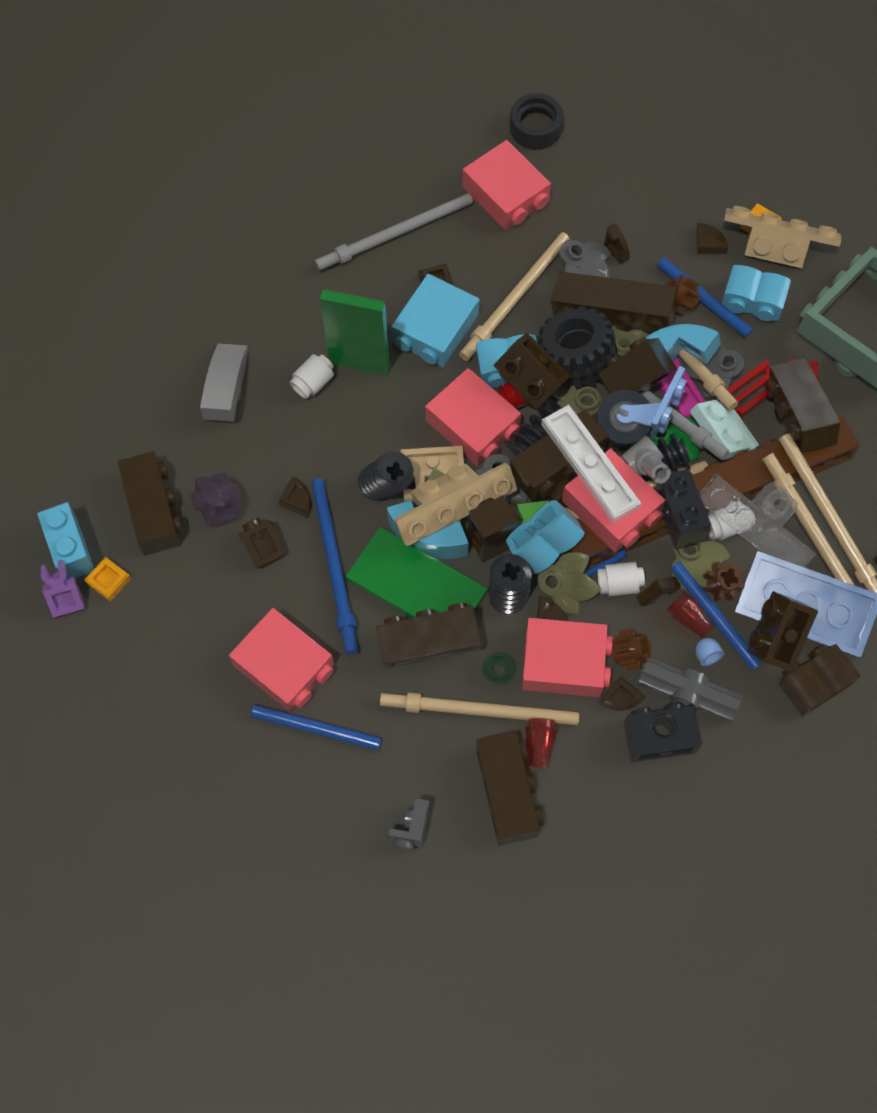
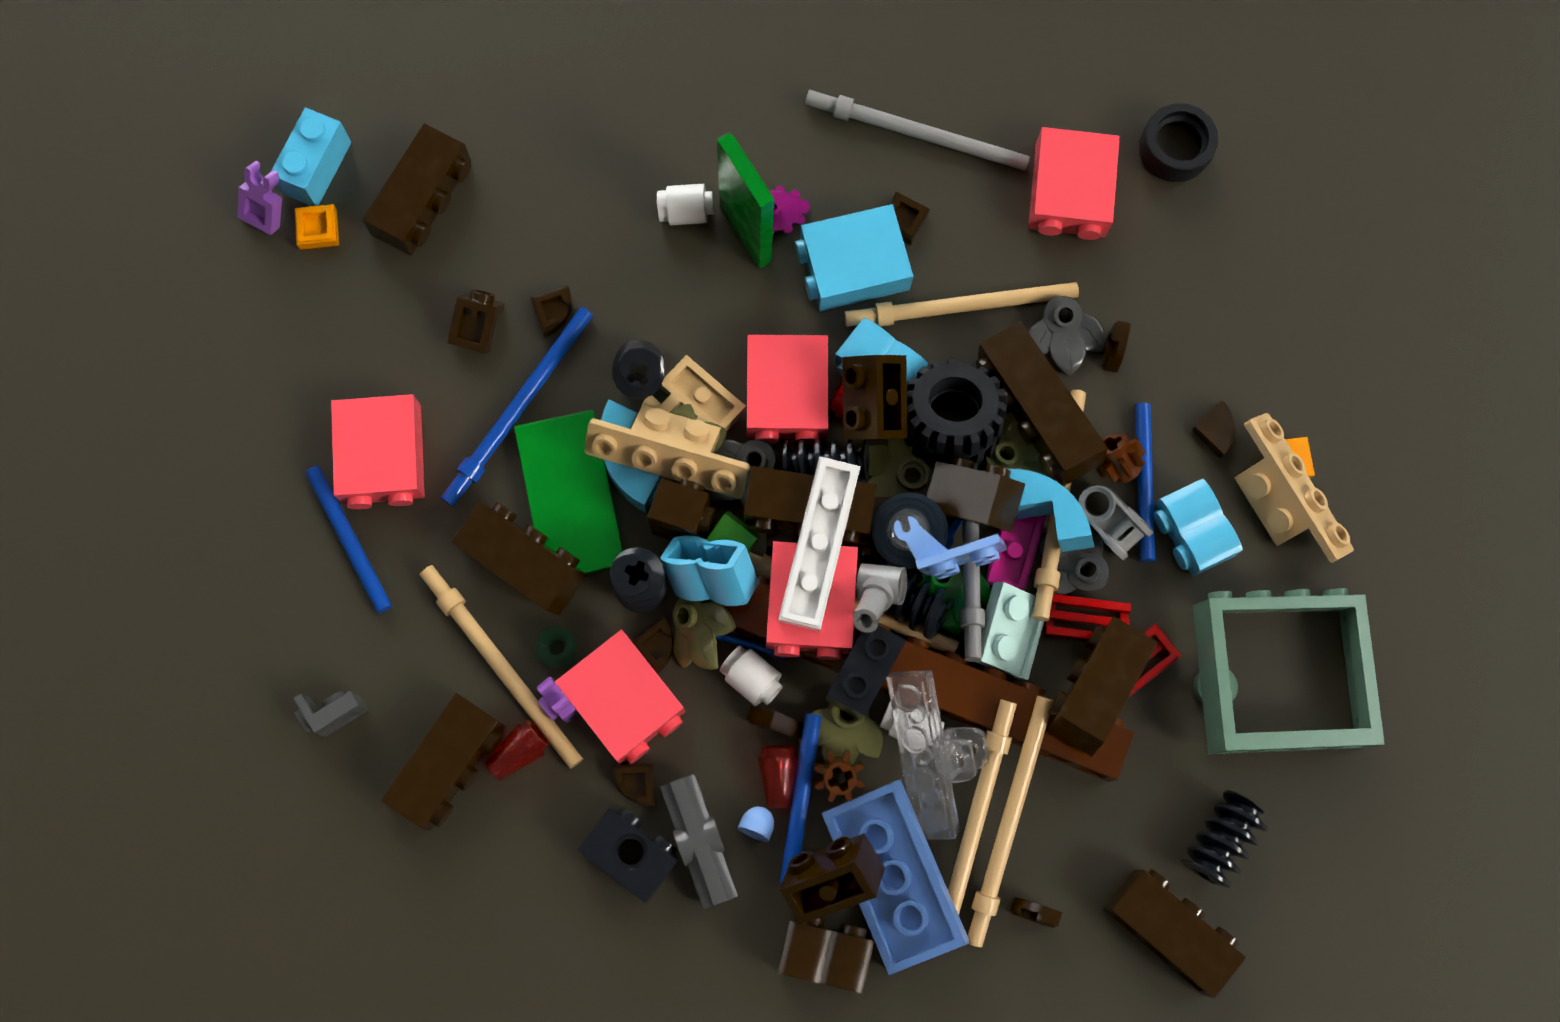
camera: 40 degrees right, 10 degrees up
(216, 498) = (474, 242): clear purple brick -> none
(224, 382) = (601, 134): light grey slope -> none
(533, 691) = (555, 701): none -> medium lavender plate
(630, 649) = (685, 750): reddish brown gear -> none
(719, 320) = (1115, 521): none -> light grey piece

